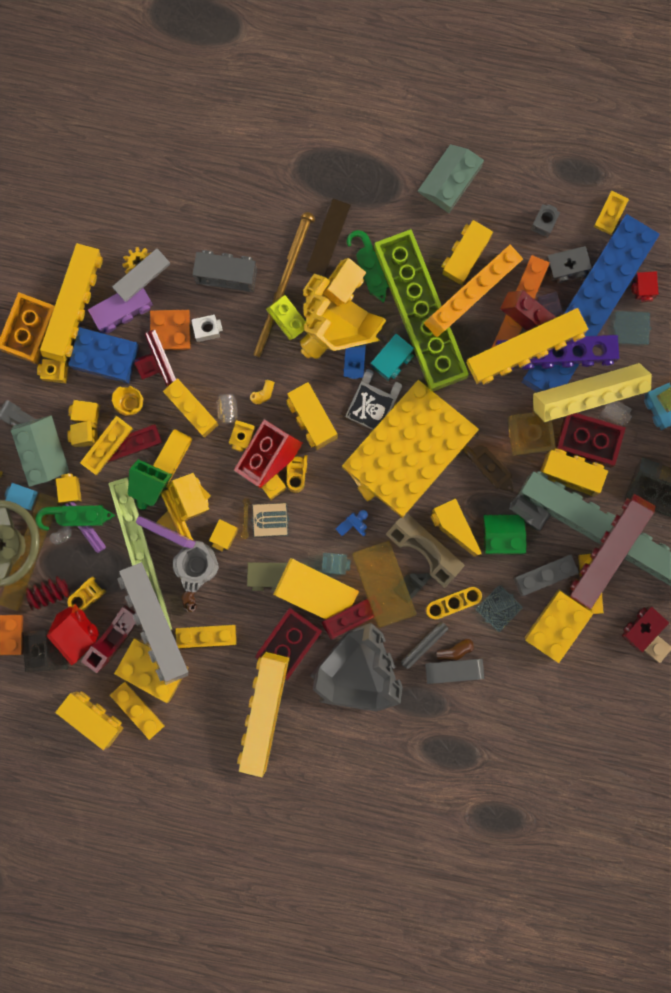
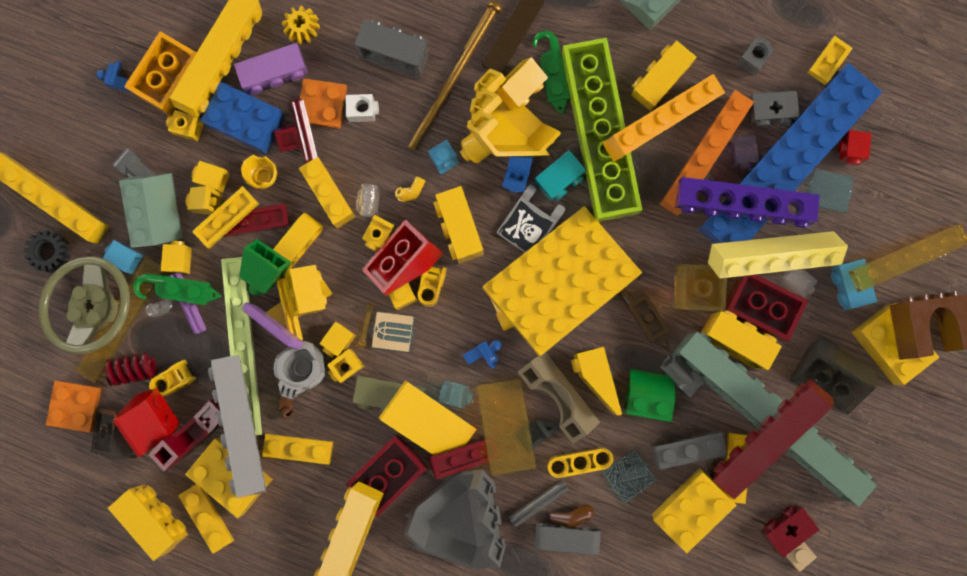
camera: 10 degrees right, 0 degrees up
(141, 275) = (299, 36): light grey tile -> none
(234, 549) = (335, 366): none -> yellow brick
(287, 317) = (451, 111): neon yellow brick -> none
(287, 358) = (443, 157): none -> dark azure brick
(525, 310) = (724, 155): dark red brick -> none
(527, 346) = (716, 189): yellow brick -> none

